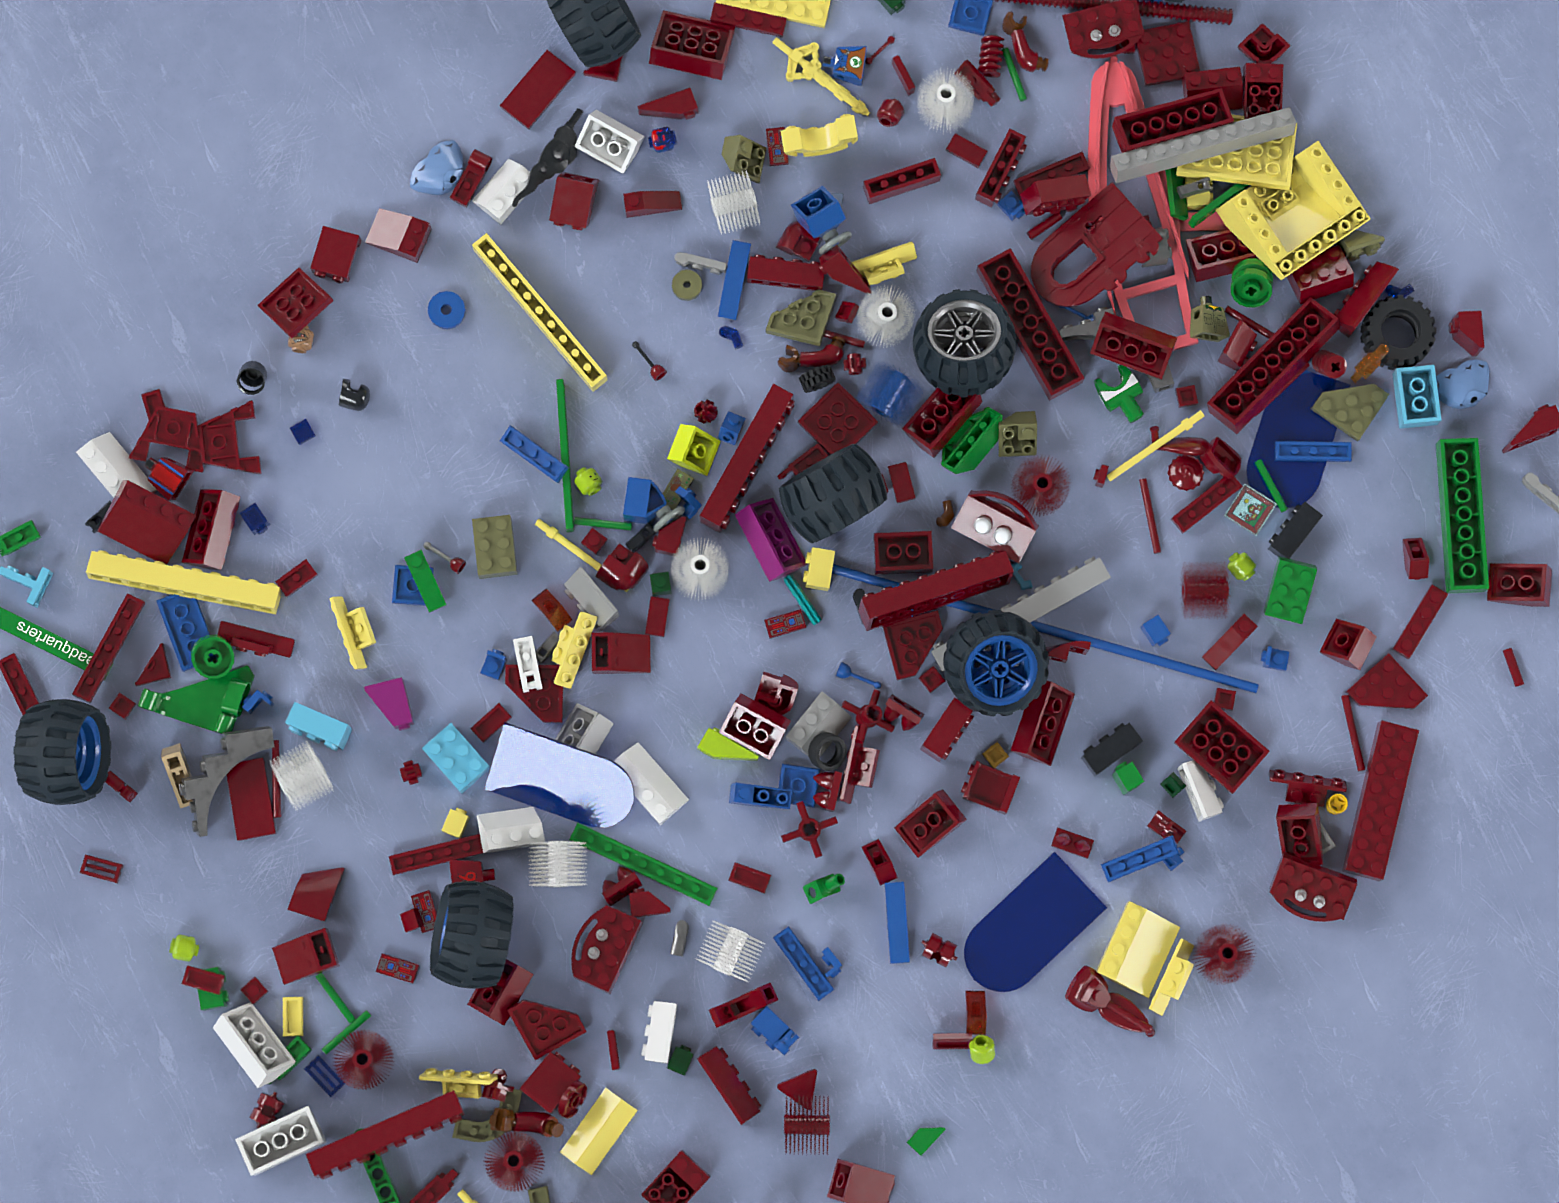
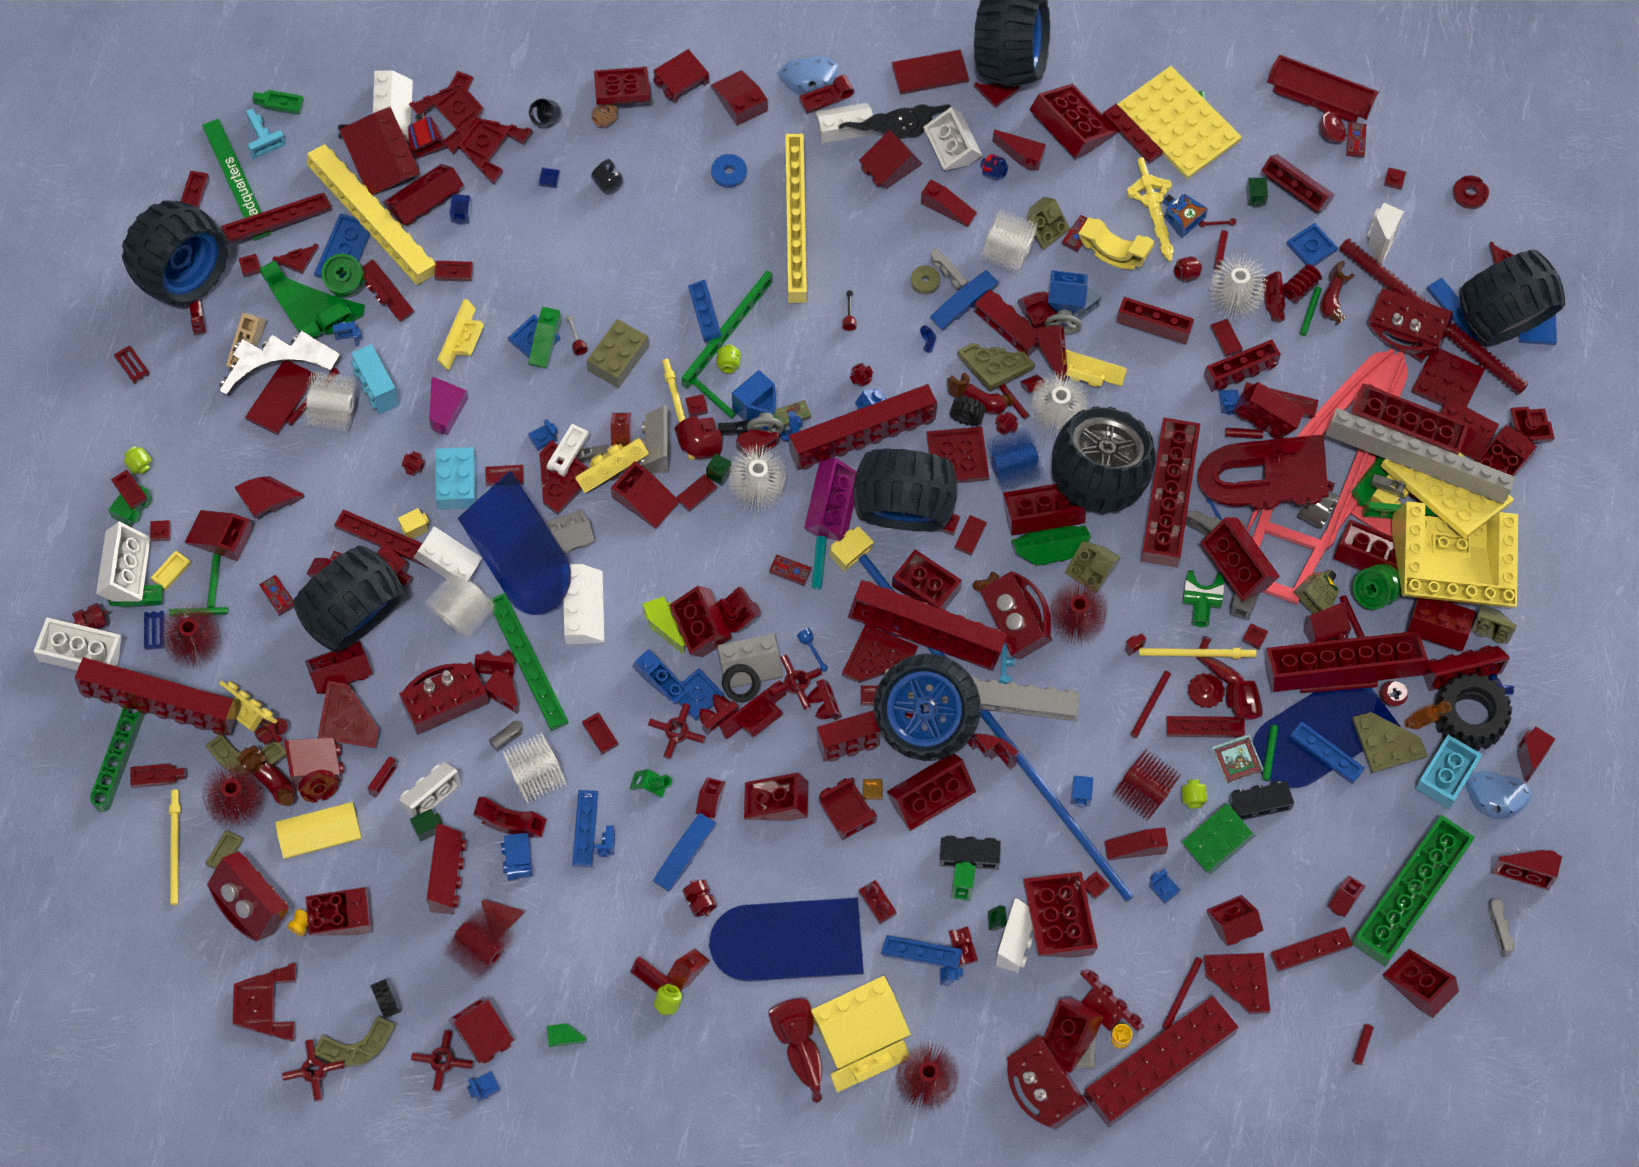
camera: 40 degrees right, 15 degrees down
(693, 449) = (829, 395): neon yellow slope -> none

